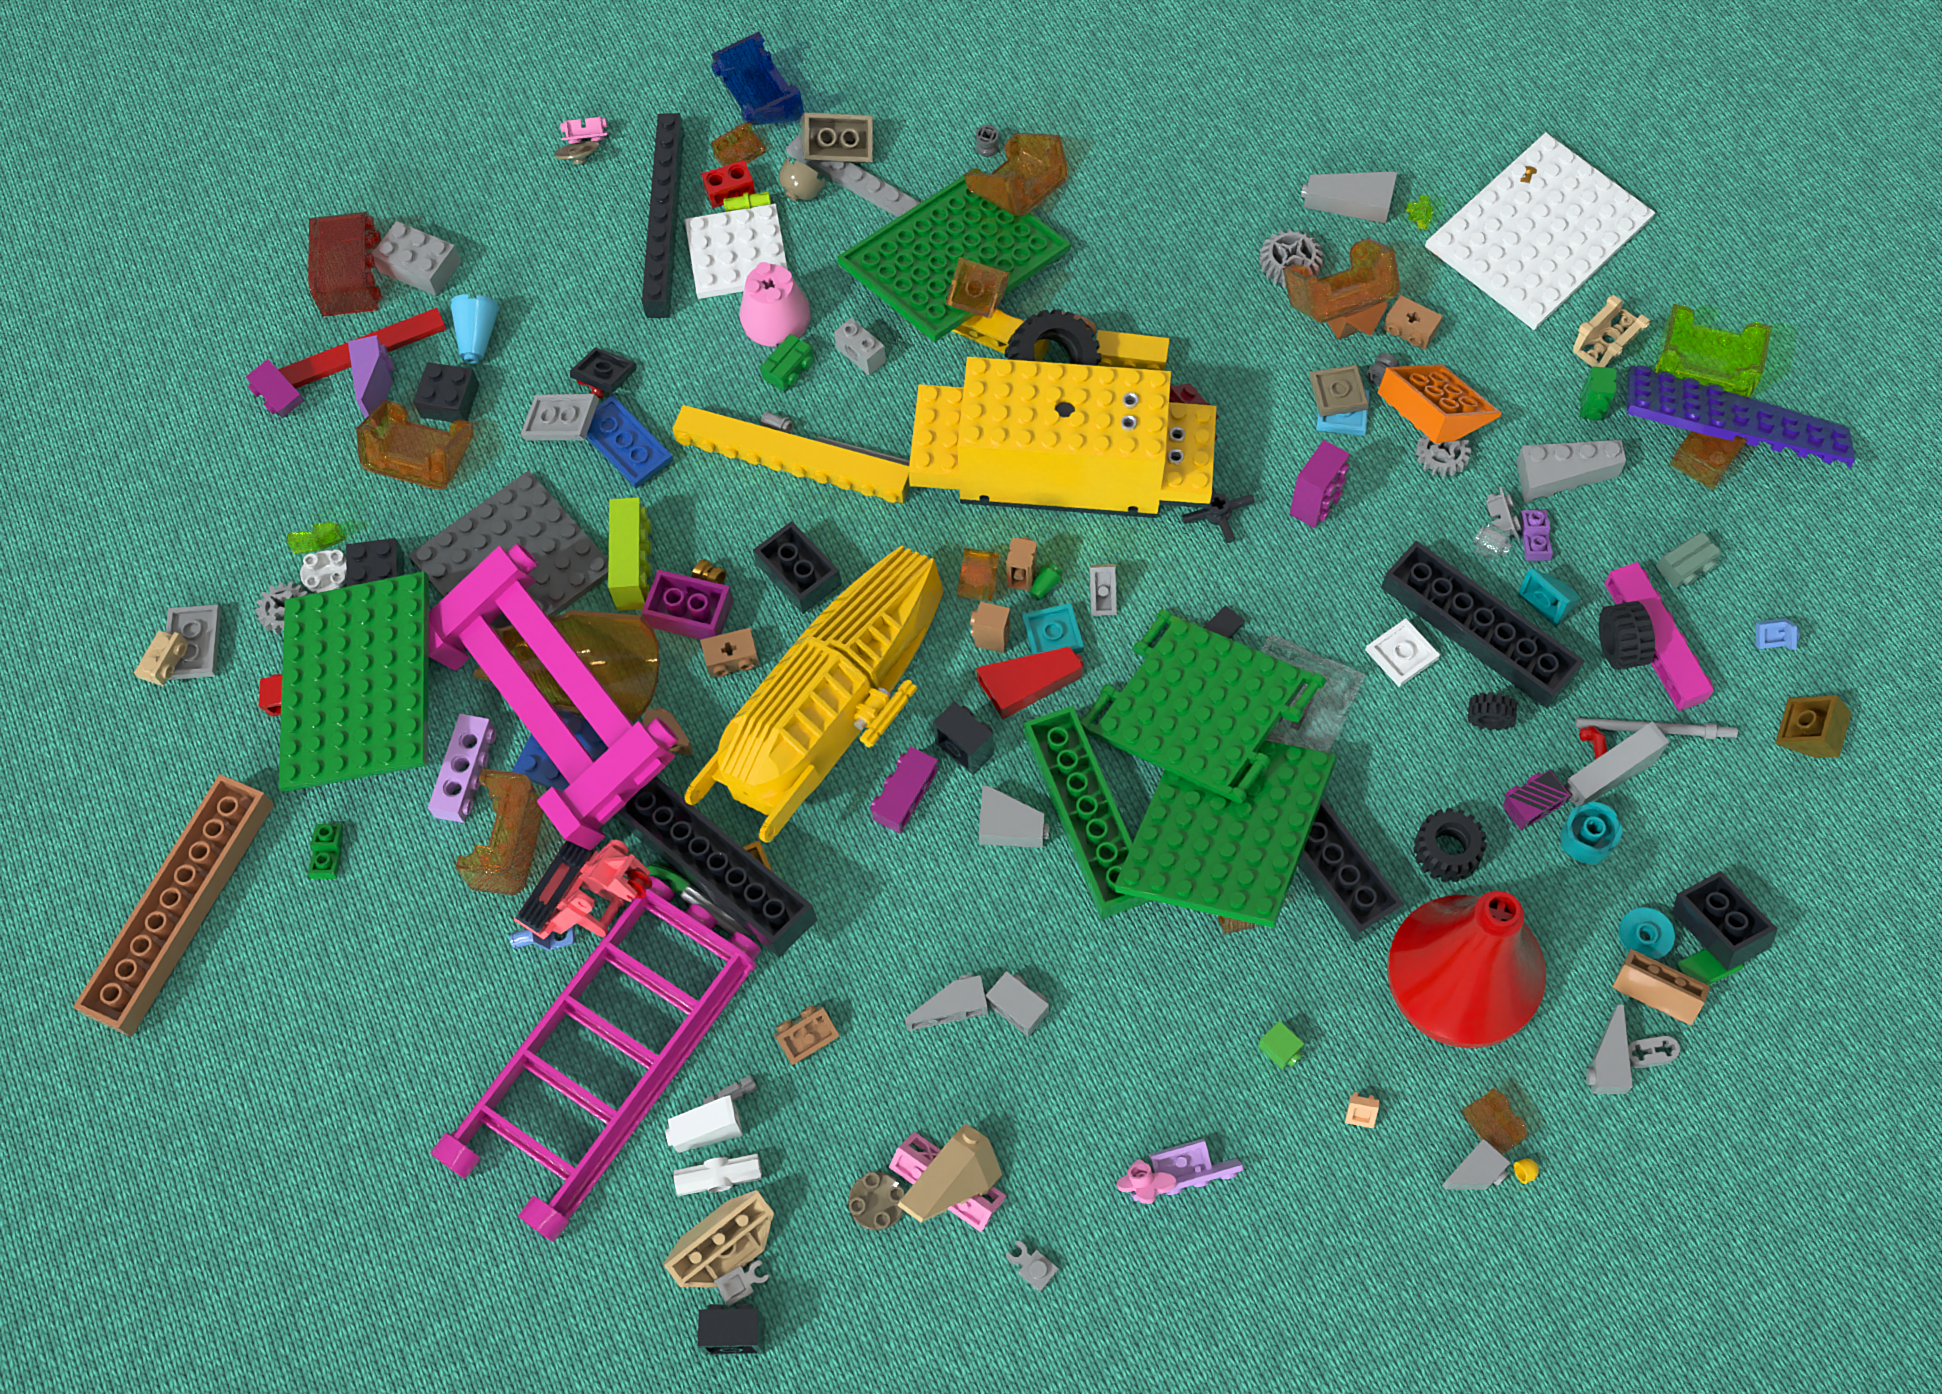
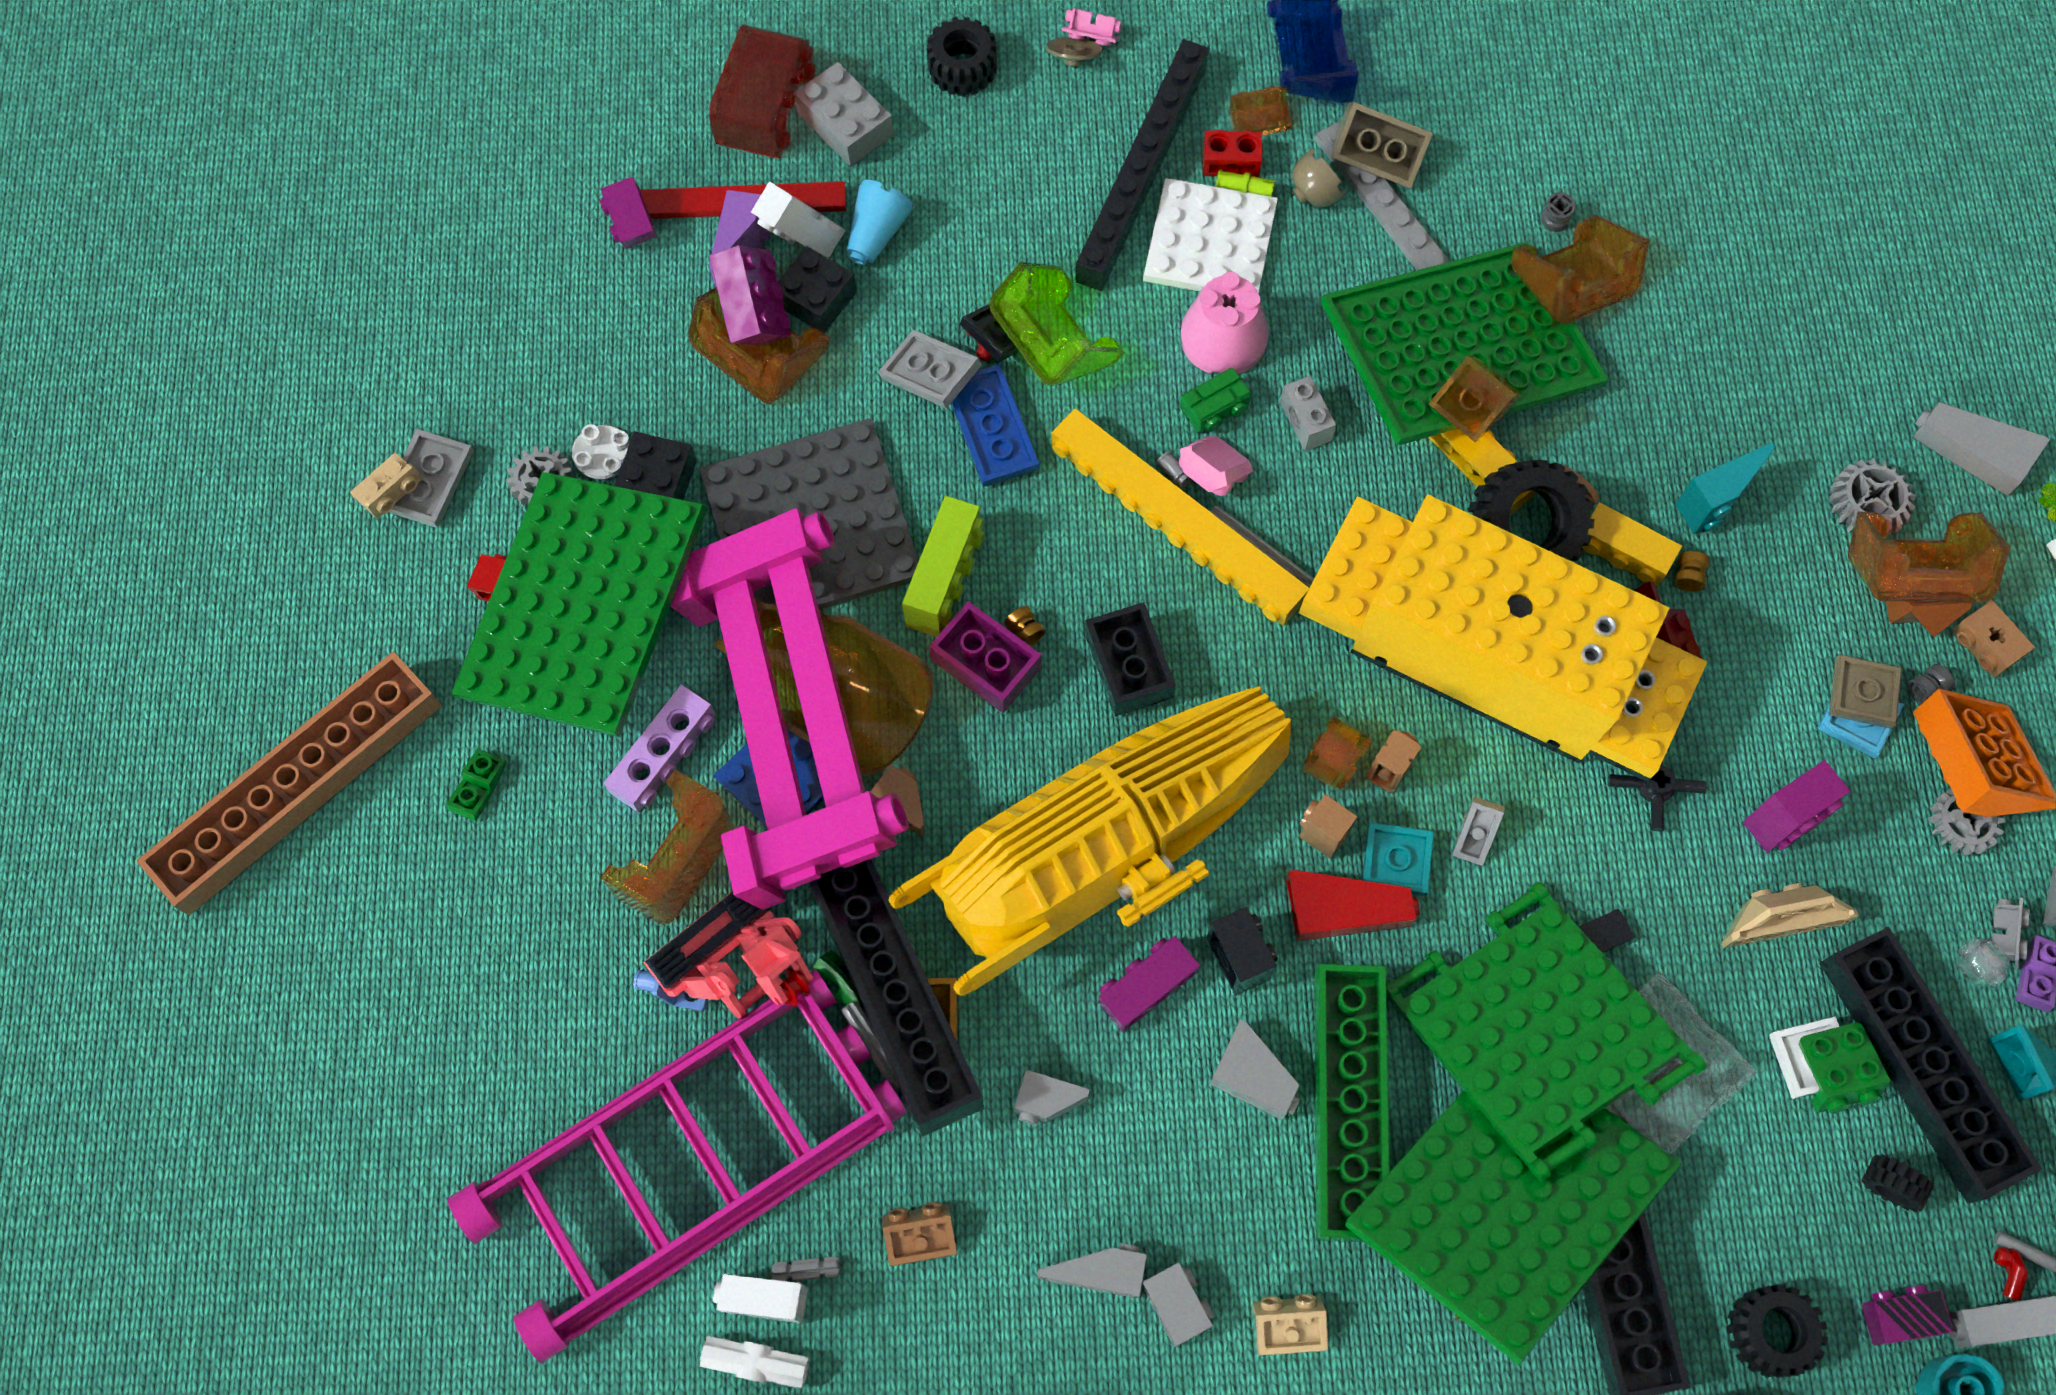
camera: 20 degrees right, 5 degrees up
(322, 537) = (613, 409): clear neon green slope -> none
(398, 411) = (750, 295): none -> magenta brick
(410, 345) = (796, 221): none -> white wedge
(487, 171) = (962, 38): none -> black tyre
(621, 348) = (1042, 329): none -> clear neon green windscreen
(717, 651) = (1000, 721): medium nougat brick -> none
(804, 408) = (1214, 464): none -> bright pink slope
(862, 899) = (1046, 1098): none -> light grey slope
(1046, 579) = (1414, 790): green cone -> none
(1106, 984) = (1290, 1325): none -> tan bracket
(1179, 289) = (1715, 491): none -> teal slope
(1184, 354) = (1692, 571): none -> pearl gold wheel
(1346, 561) = (1786, 914): none -> tan wedge
(1425, 650) = (1844, 1068): none -> green bracket

